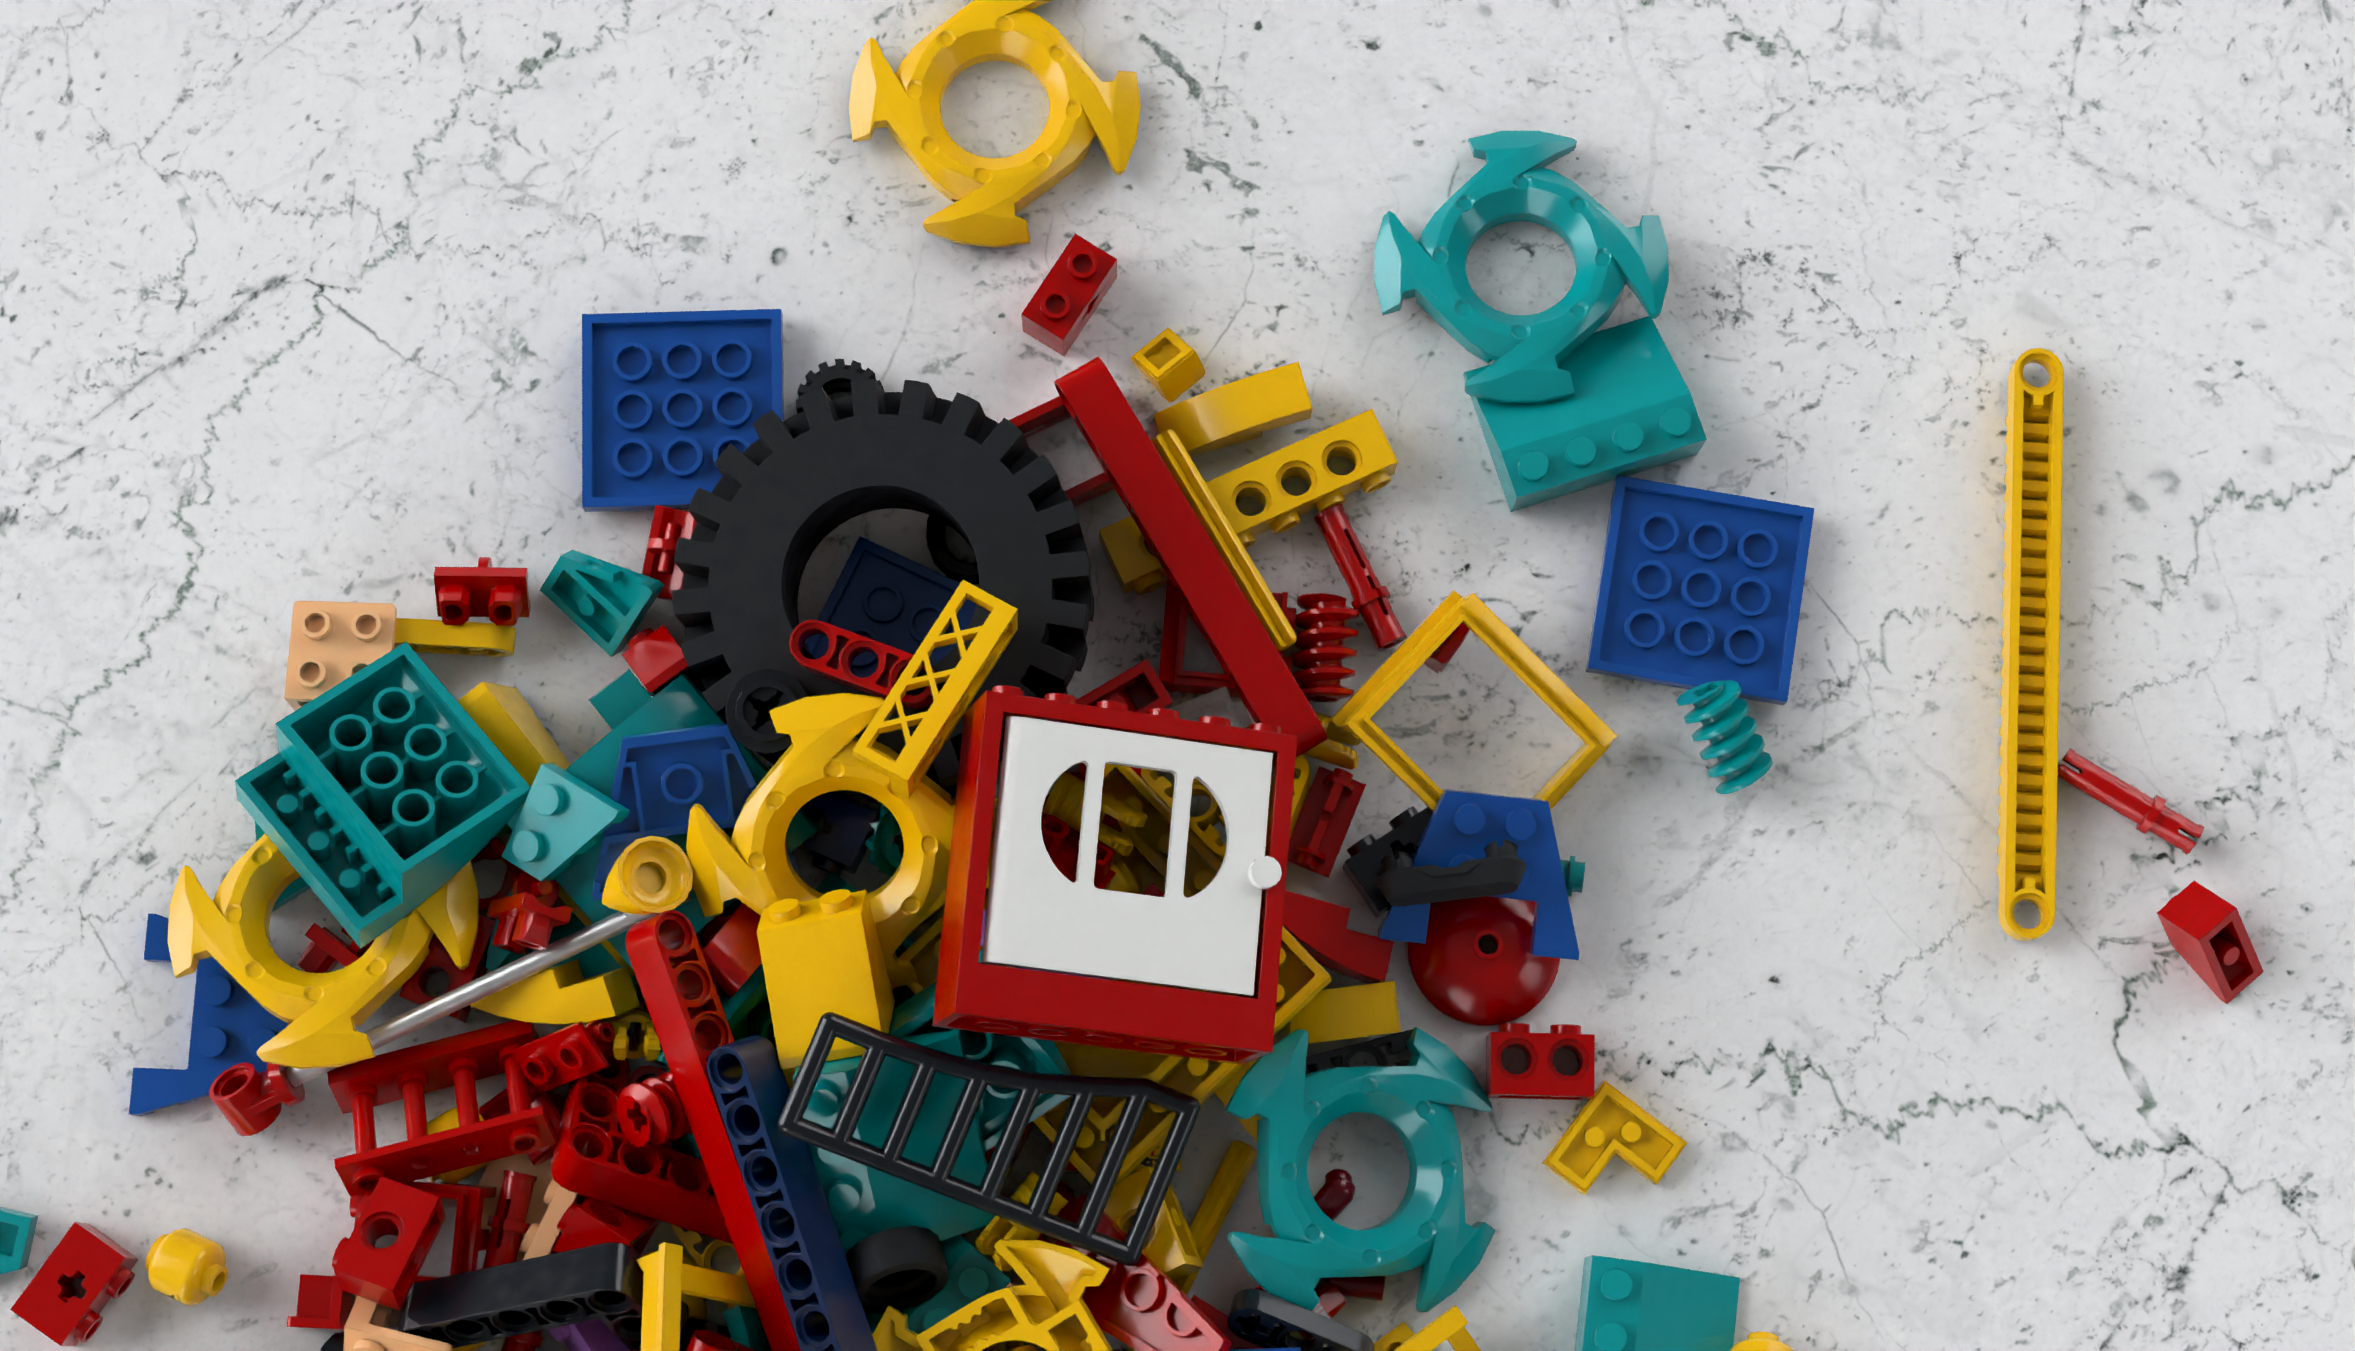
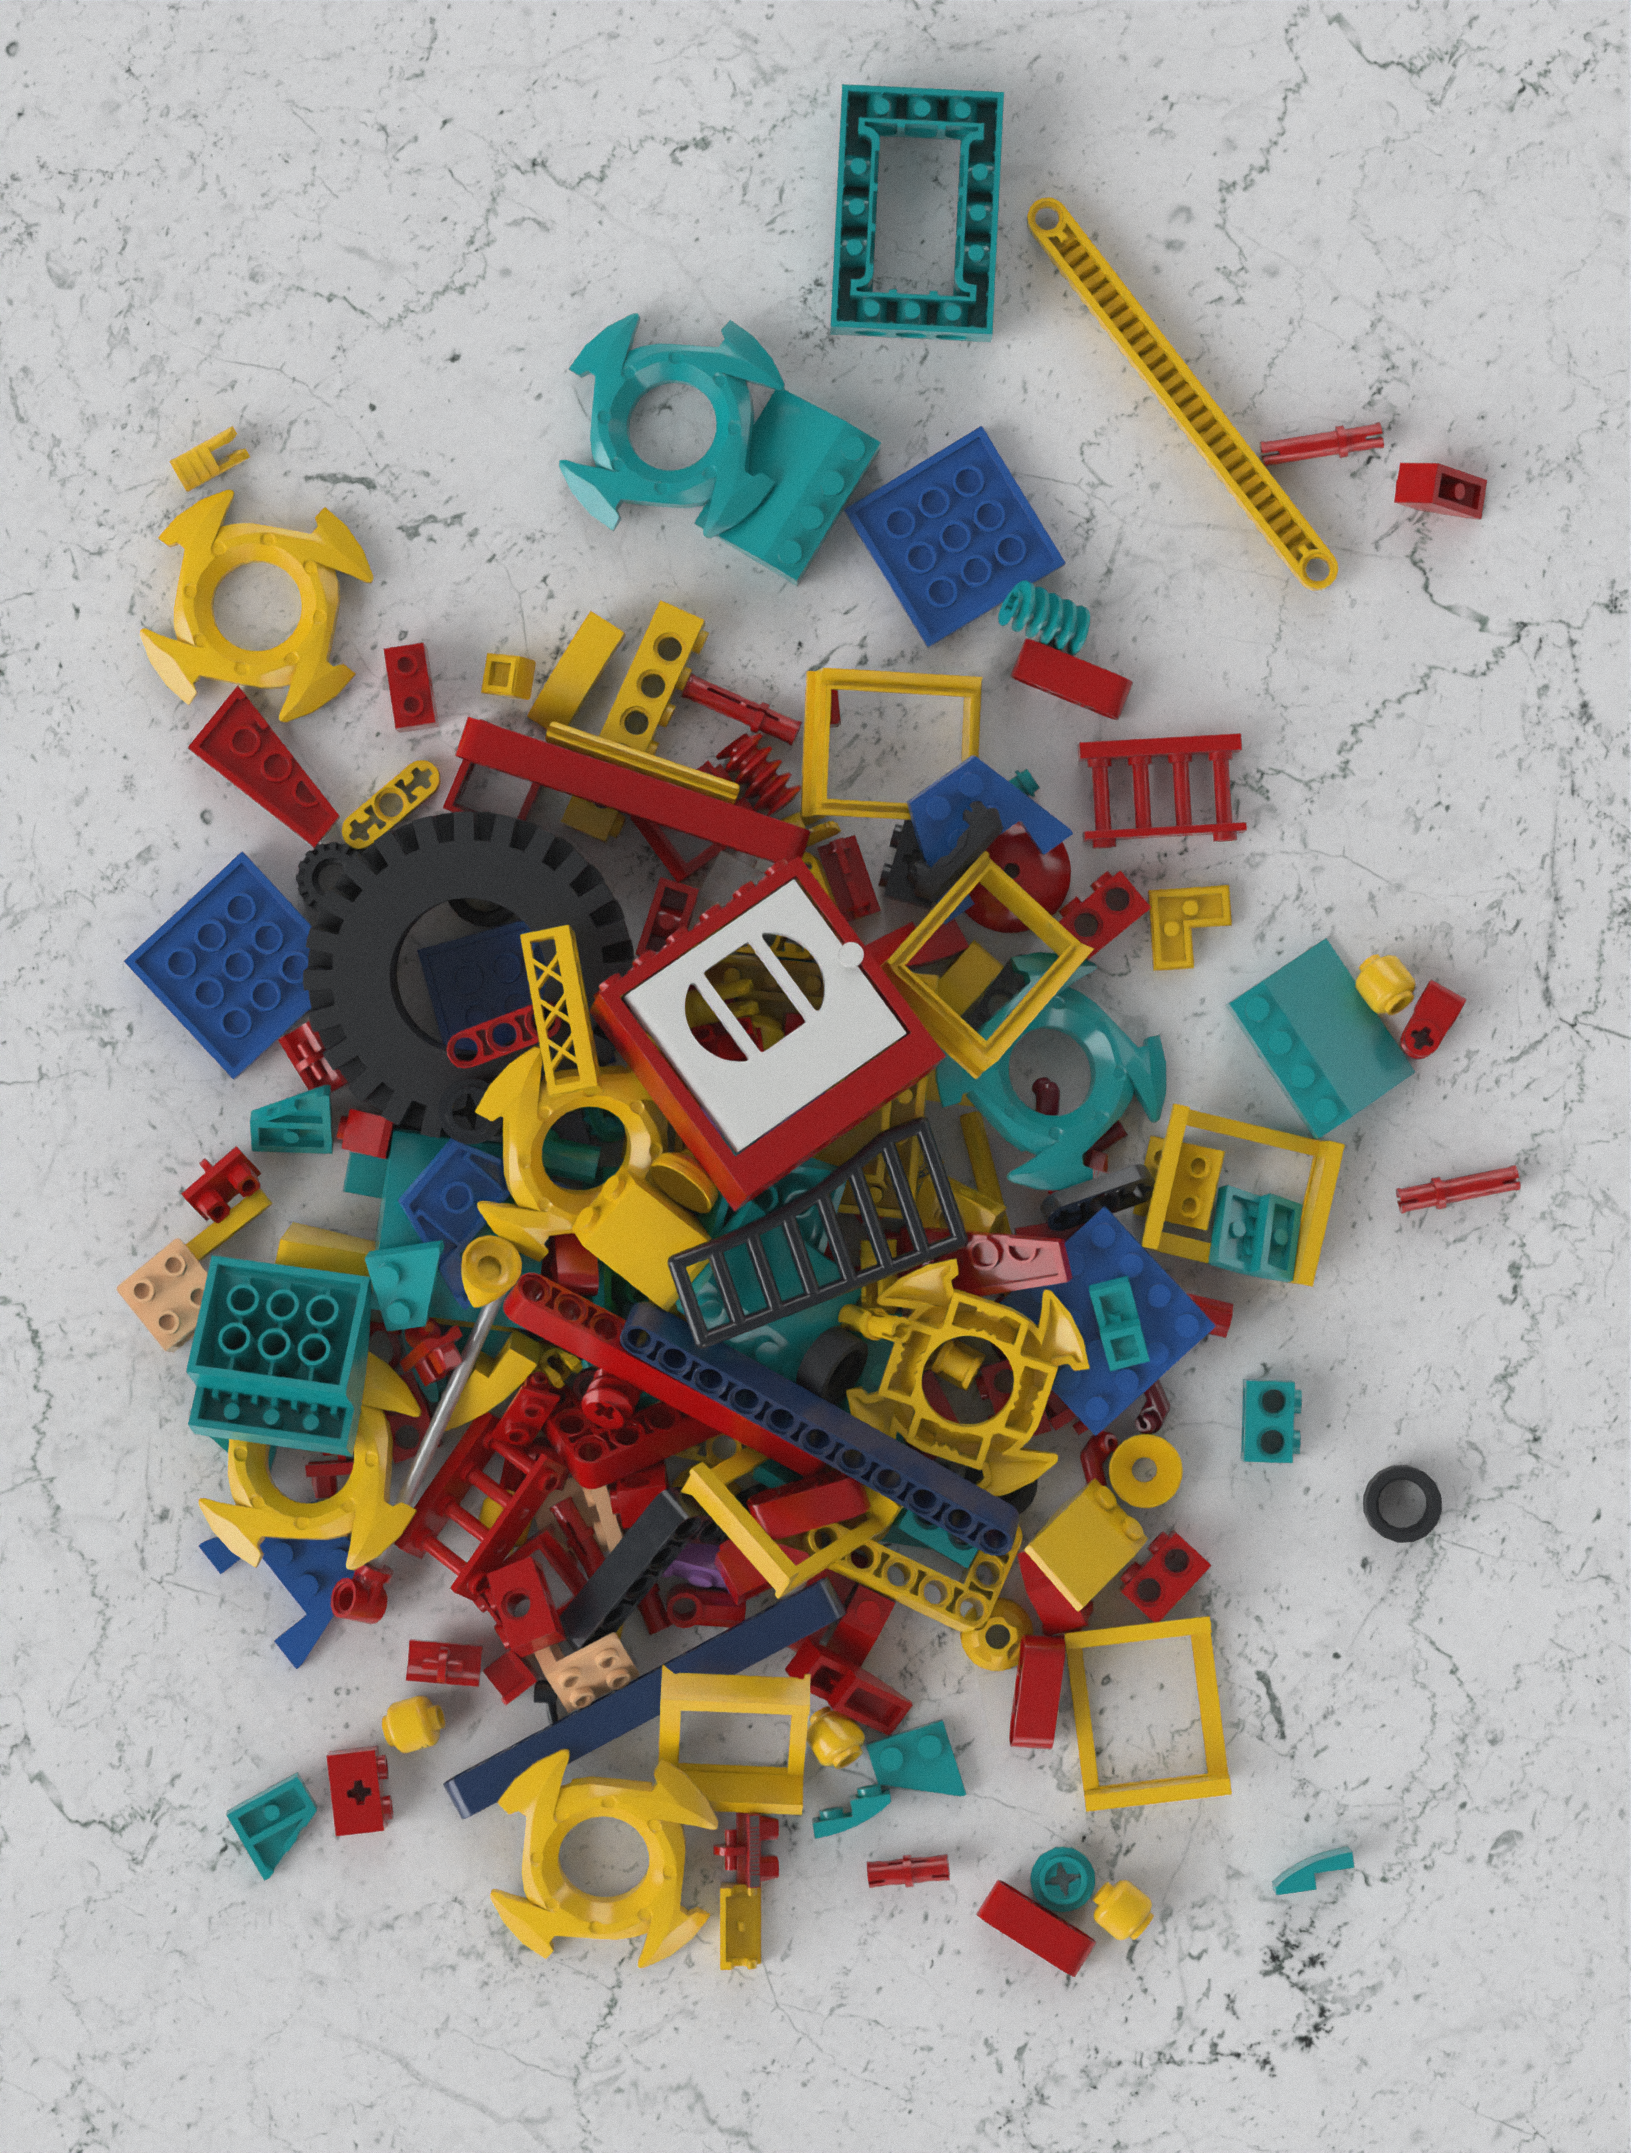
camera: 30 degrees left, 10 degrees up
(270, 1233) = (444, 1662): none -> red hips
(822, 843) = (569, 1158): none -> teal piece
(868, 245) = (256, 761): none -> red wing
(911, 956) = (684, 1180): none -> yellow piece
(942, 370) = (408, 778): none -> yellow beam
(974, 1263) = (875, 1323): none -> yellow pin
(1296, 1017) = (943, 1023): none -> yellow piece
(1700, 815) = (1071, 679): none -> red beam
(1746, 974) = (1179, 753): none -> red fence
(1991, 176) = (925, 114): none -> teal brick

